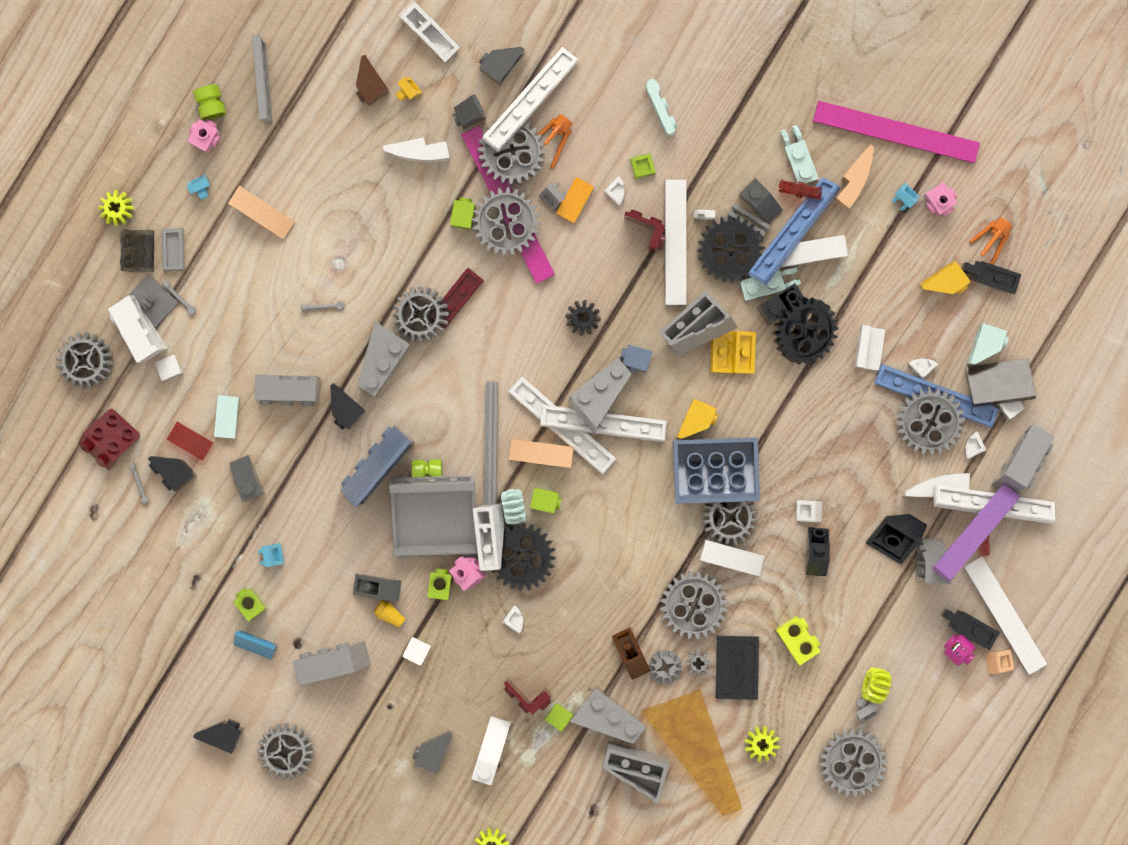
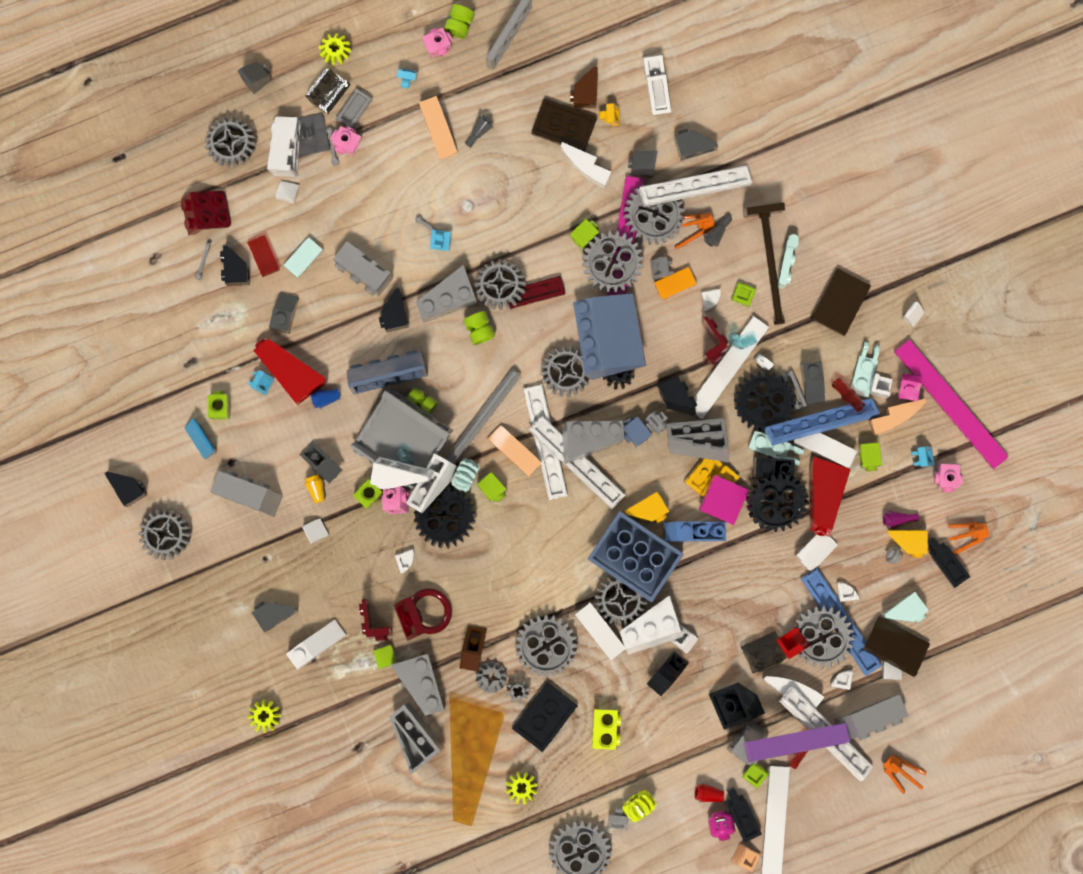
camera: 40 degrees right, 5 degrees down
(62, 284) = (255, 76): none -> dark grey slope
(195, 284) = (349, 146): none -> bright pink brick
(292, 528) = (290, 372): none -> red slope
(299, 184) = (481, 126): none -> dark grey cone
(337, 528) = (324, 397): none -> blue cone
(338, 312) = (440, 240): none -> medium azure tile
(372, 128) = (563, 124): none -> dark brown tile
(430, 366) = (479, 328): none -> lime wheel
(451, 552) = (392, 474): none -> white slope
(452, 533) = (404, 456): none -> clear light blue arm
(516, 351) = (557, 385): none -> light grey gear
(551, 290) = (609, 335): none -> sand blue slope
(557, 666) = (411, 617): none -> dark red tile
(579, 130) = (716, 233): none -> dark grey cone
(609, 80) = (764, 213): none -> dark brown tile
(648, 301) = (676, 397): none -> black slope
(648, 337) = (656, 422): none -> light grey gear
(671, 212) = (739, 342): none -> clear light blue arm
(733, 110) = (840, 302): none -> dark brown tile
(751, 409) = (695, 531): none -> medium blue slope
(756, 363) = (723, 499): none -> dark pink tile
(776, 521) = (652, 628): none -> white wedge
(805, 75) = (913, 314): none -> white slope
(823, 161) = (880, 386): none -> white panel
(843, 292) = (826, 489): none -> red slope
(850, 143) = (910, 387): none -> dark pink brick
(858, 231) = (870, 456): none -> lime brick
(888, 471) = (763, 652): none -> clear smoke bracket
(908, 445) = (793, 643): none -> red panel
(918, 271) = (893, 519): none -> magenta cone
(927, 631) = (707, 793): none -> red cone
(941, 303) = (893, 555): none -> light grey plate
(958, 585) = (756, 775): none -> lime tile
(1070, 488) = (893, 765): none -> orange plant

